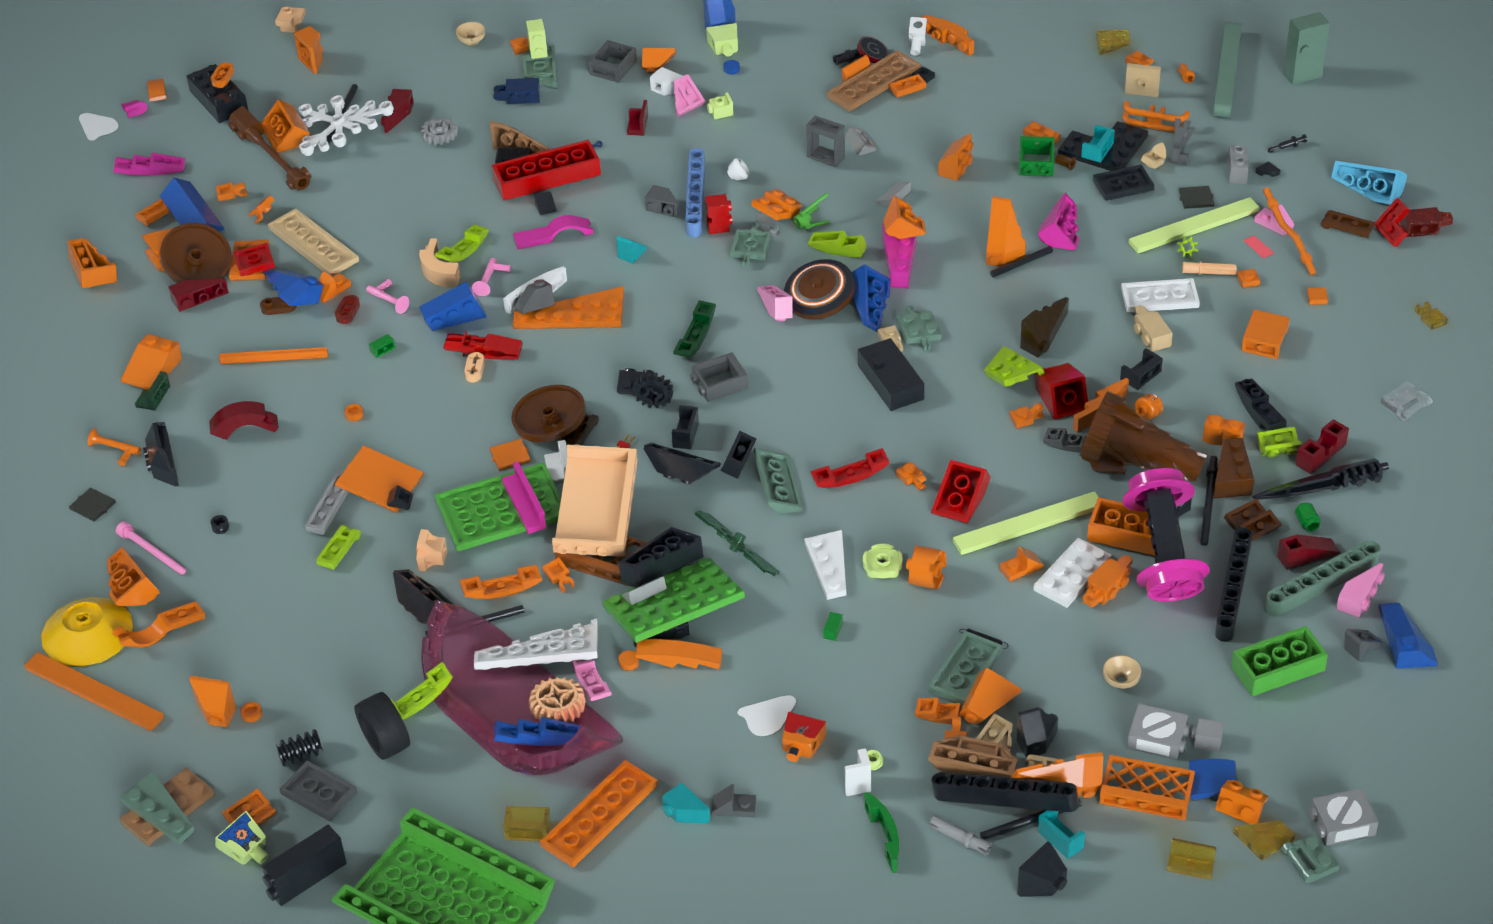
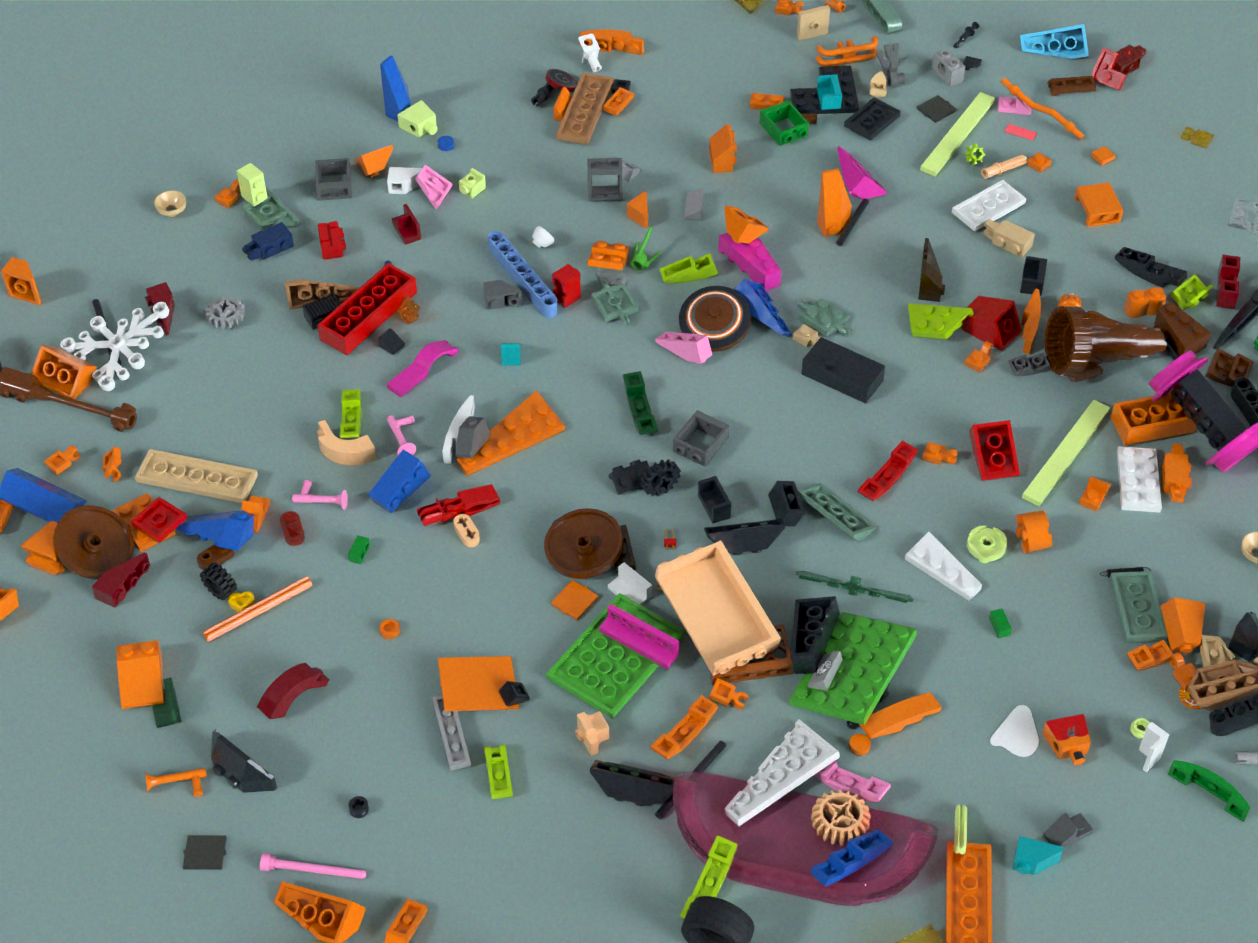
camera: 35 degrees left, 5 degrees up
(258, 321) = (218, 581): none -> black tyre
(267, 344) = (241, 601): none -> yellow tile
(567, 107) = (330, 240): none -> red brick
(578, 184) = (408, 310): none -> clear orange bracket
(642, 756) = (960, 829): none -> yellowish green axle
(842, 178) = (638, 210): none -> orange slope

